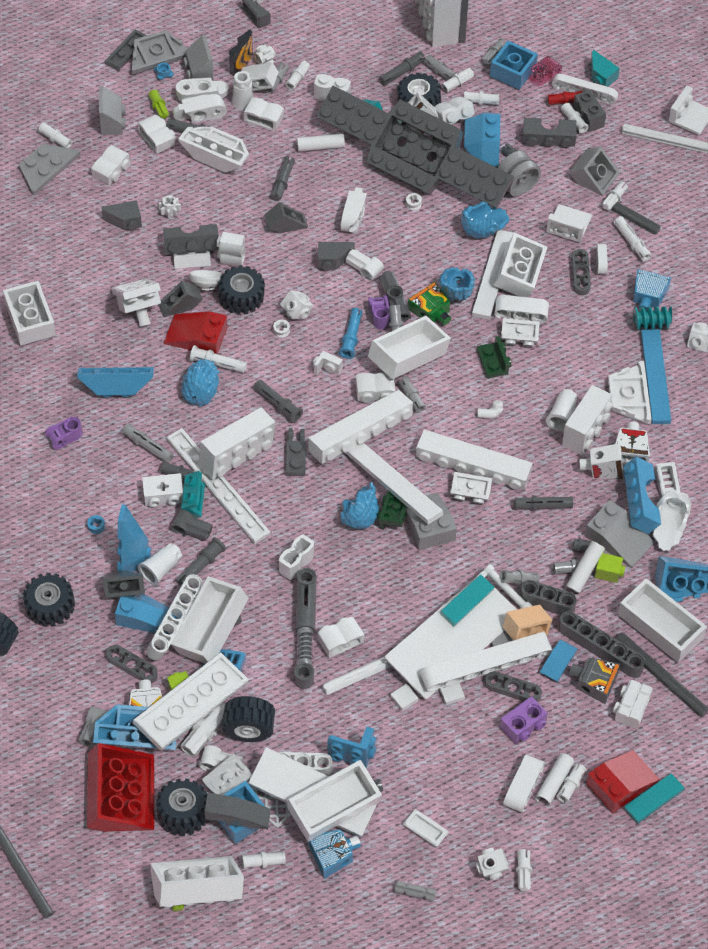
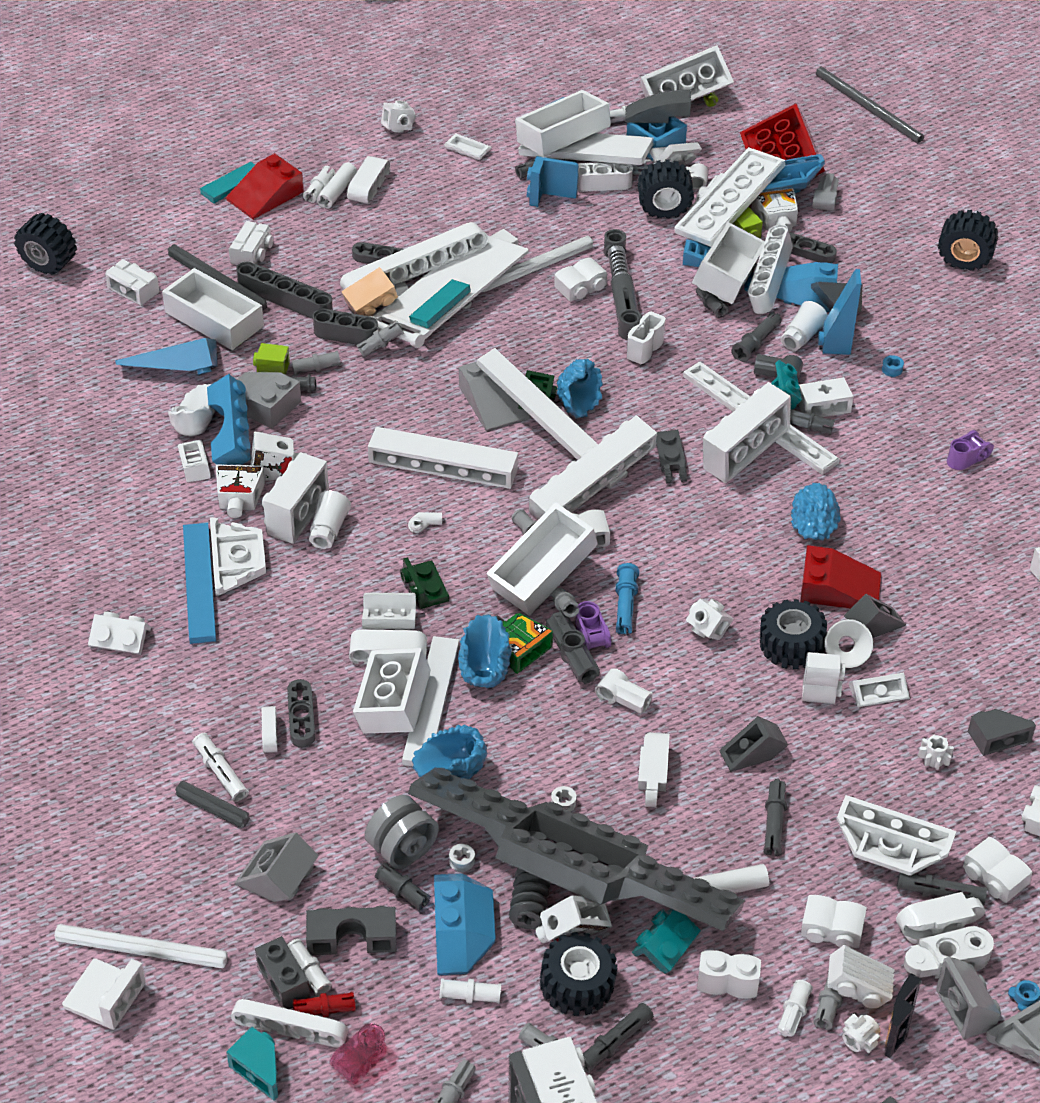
camera: 175 degrees right, 10 degrees down
(49, 599) = (917, 283): black wheel -> none
(115, 381) = (929, 510): dark azure wedge -> none
(137, 297) = (937, 594): white brick -> none
(143, 440) = (870, 453): light grey pin -> none
(158, 104) = (1012, 927): lime axle -> none
(180, 242) = (908, 692): dark grey arch -> none
(181, 807) = (717, 135): black wheel -> none
(222, 361) = (791, 548): white pin -> none
(242, 90) = (881, 940): white plant -> none
(281, 323) = (726, 594): white bush -> none
(284, 405) = (698, 503): dark grey pin -> none
(330, 362) = (650, 554): white bracket -> none
(333, 254) = (671, 699): dark grey slope -> none
(415, 891) = (473, 104): light grey axle -> none
(455, 109) = (515, 948): white brick -> none
(457, 80) = (514, 1022): white axle -> none
(471, 487) = (445, 424): white bracket -> none
(513, 65) = (417, 1047): dark azure brick -> none
(520, 717) = (371, 223): medium lavender brick -> none
(524, 870) = (367, 123): white axle -> none
(542, 502) = (352, 423): dark grey pin -> none
(558, 660) = (330, 278): dark azure slope -> none
(568, 223) = (319, 777): white bracket -> none
(585, 567) = (301, 348): white piece -> none
(596, 678) = (292, 260): dark grey torso -> none
(614, 196) = (245, 834): white axle -> none
(650, 288) = (198, 687): dark azure torso -> none
(652, 317) = (198, 644): teal piece -> none

